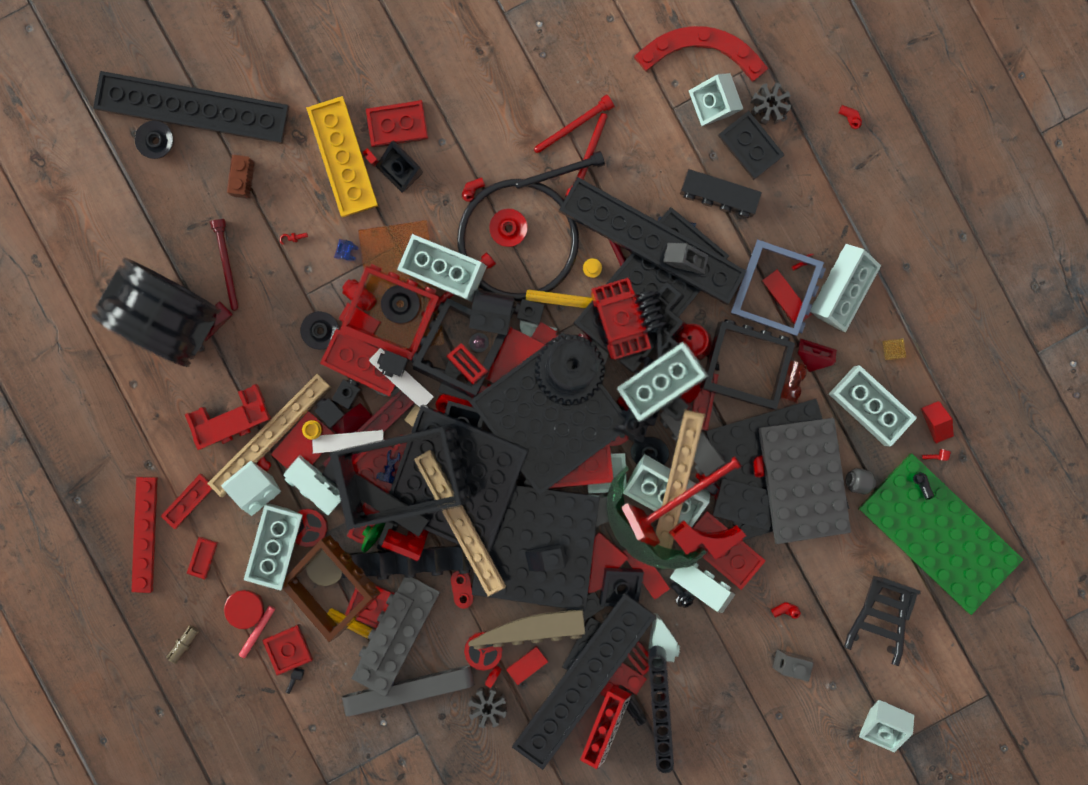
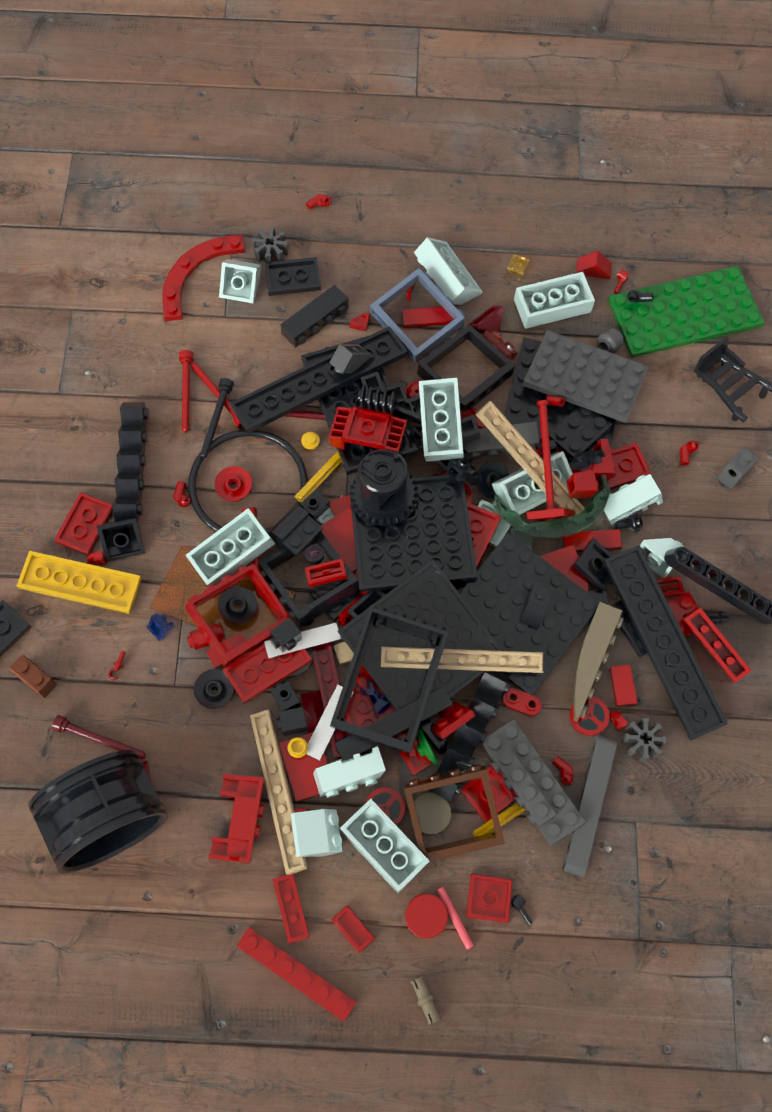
camera: 65 degrees left, 20 degrees down
(424, 656) = (566, 770): none -> red arm
(474, 125) = (131, 461): none -> black brick
(712, 526) = (585, 459): none -> black plate
(742, 238) = (360, 322): none -> red tile

